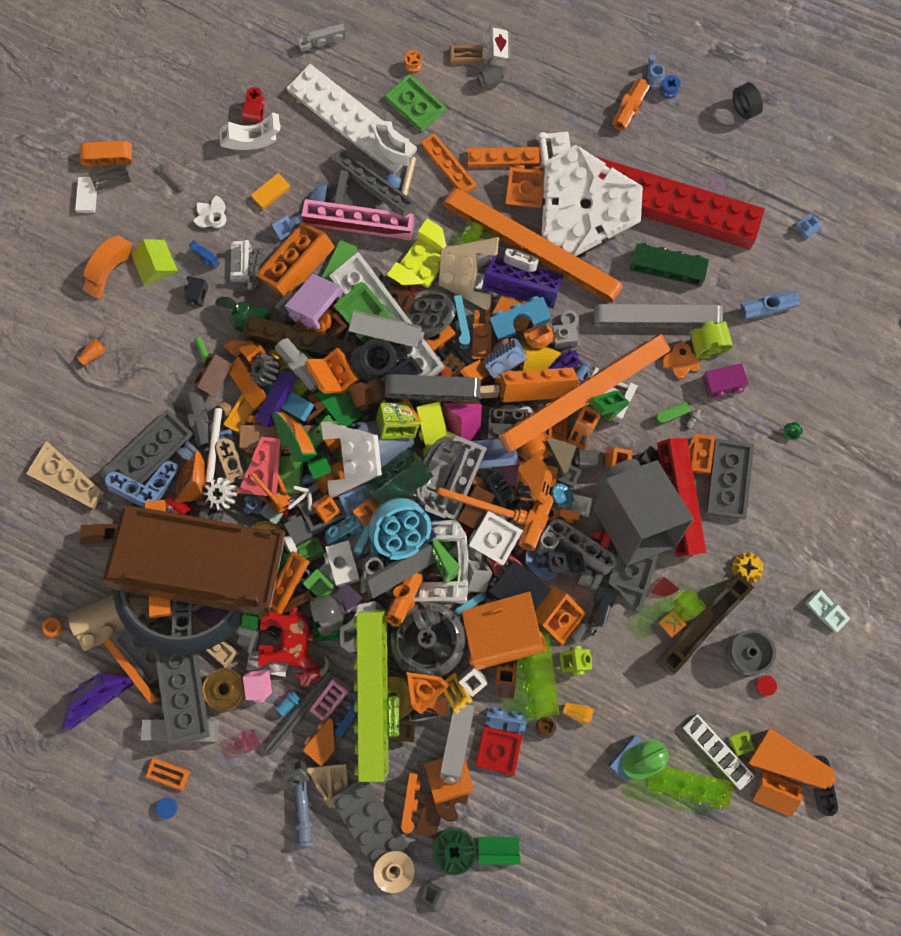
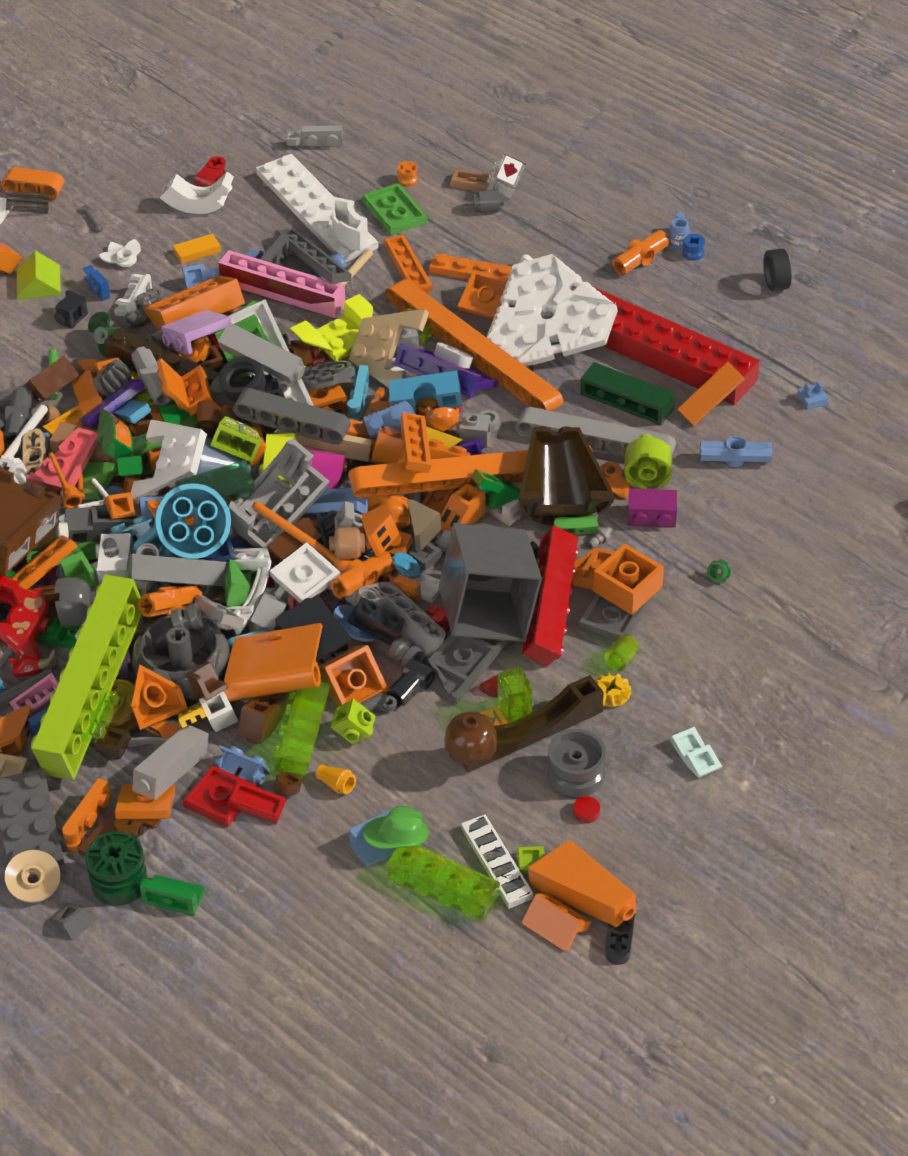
camera: 15 degrees right, 30 degrees down
(444, 599) = (216, 612): none -> light grey hinge
(461, 669) = (205, 681): none -> reddish brown panel
(511, 481) = (347, 517): none -> light grey tile
(520, 503) = (347, 543): none -> medium nougat head
(529, 752) = (256, 802): none -> red tile
(541, 391) = (415, 443): none -> orange plate
(657, 378) = (562, 477): none -> dark brown cone
(675, 666) = (470, 738): none -> reddish brown cylinder
(737, 253) = (711, 394): none -> orange tile
(737, 469) = (628, 578): none -> orange brick
(747, 533) = (621, 653): none -> clear neon green brick

